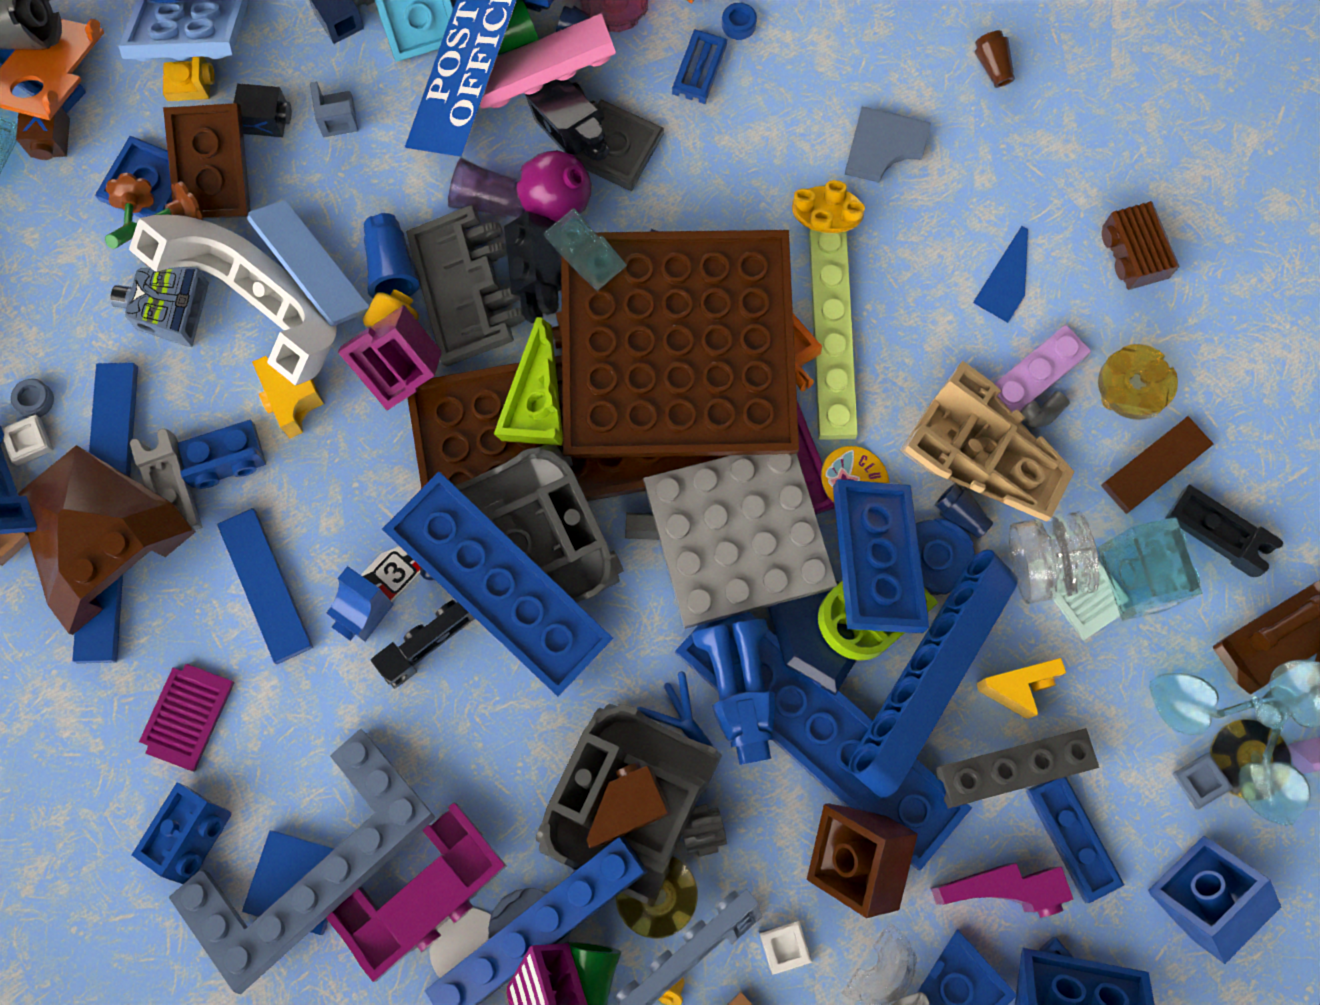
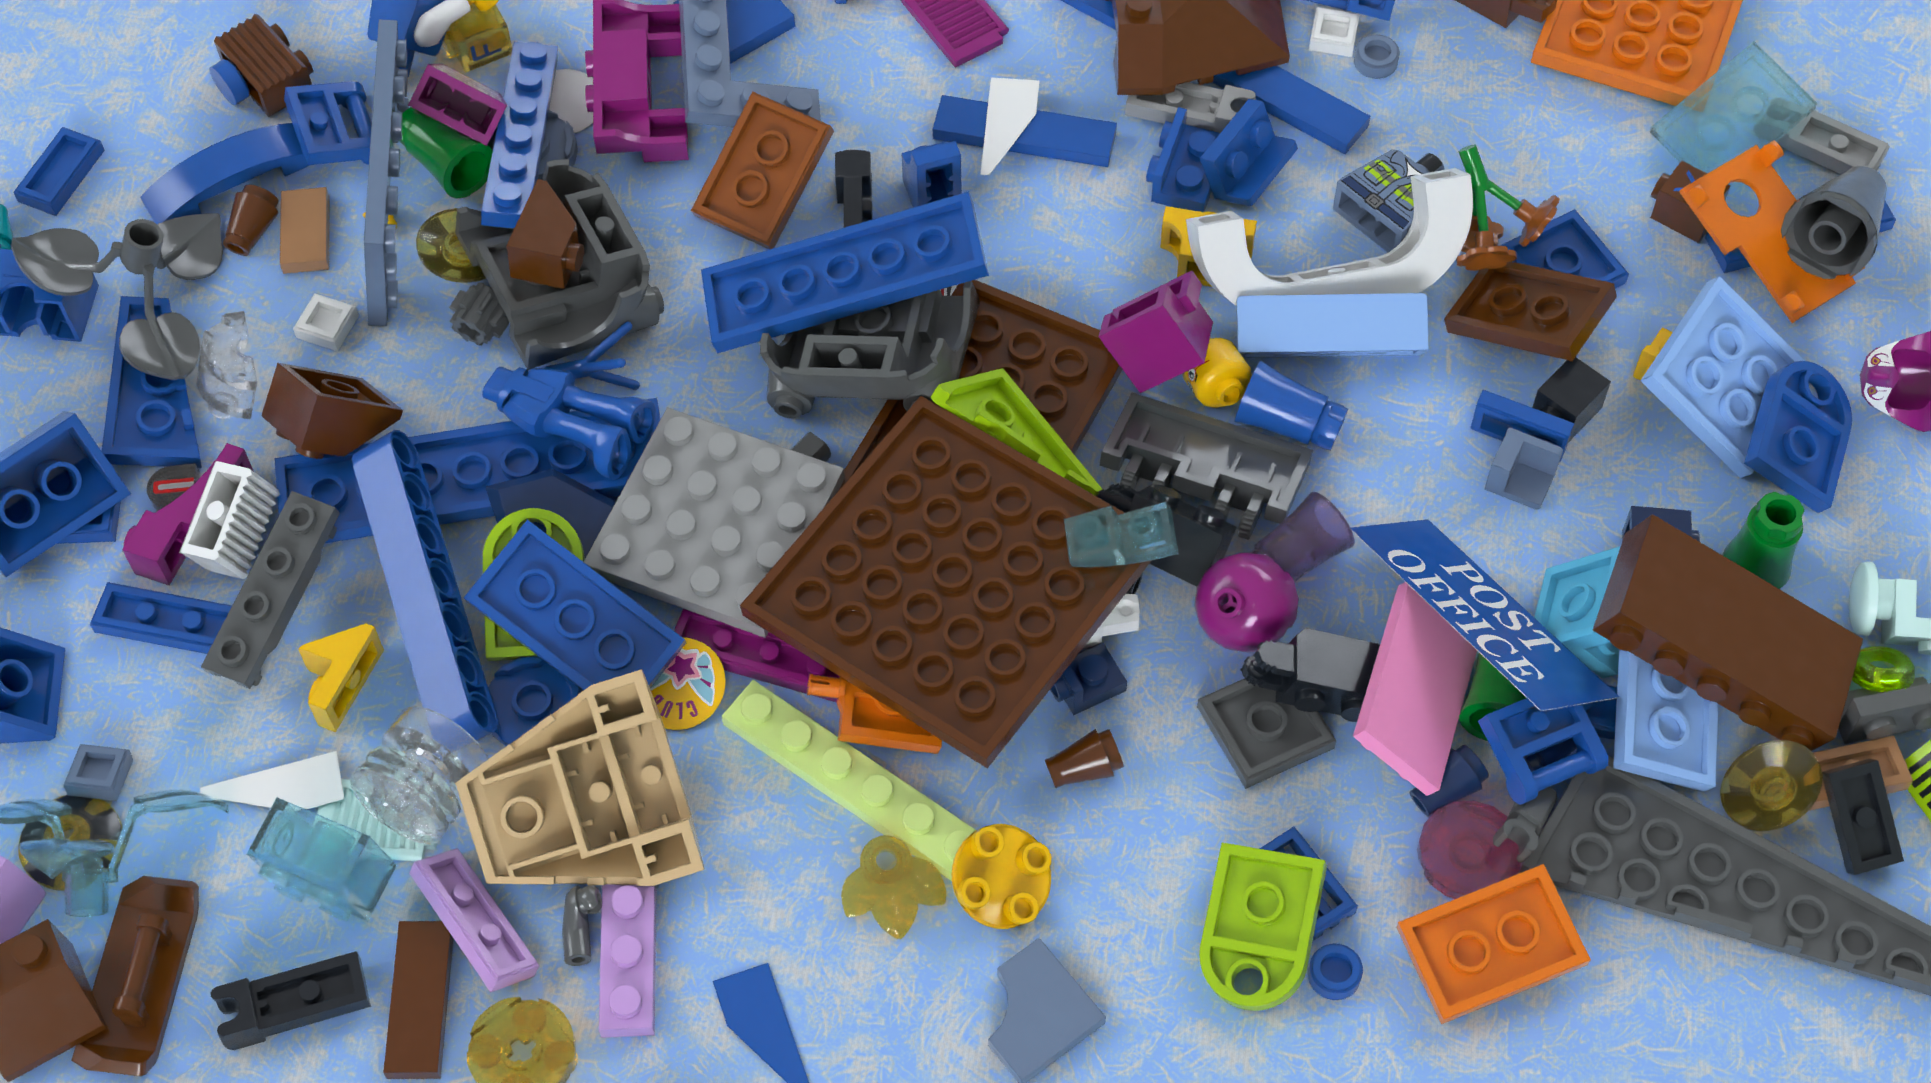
camera: 130 degrees right, 15 degrees down
(193, 408) = (1246, 156): none -> blue bracket
(260, 600) = (1009, 112): none -> white sticker
(301, 125) = (1496, 414): none -> blue tile
(436, 729) = (762, 170): none -> dark orange tile
(718, 214) = (1085, 760): none -> reddish brown cone
(744, 64) = (1260, 919): none -> lime plate
(878, 266) = (895, 892): none -> clear yellow plate
(990, 926) = (171, 483): none -> clear smoke tile
(994, 847) = (229, 520): none -> white brick
(1094, 467) = (474, 919): none -> lavender tile
(1108, 656) = (302, 783): none -> white sticker

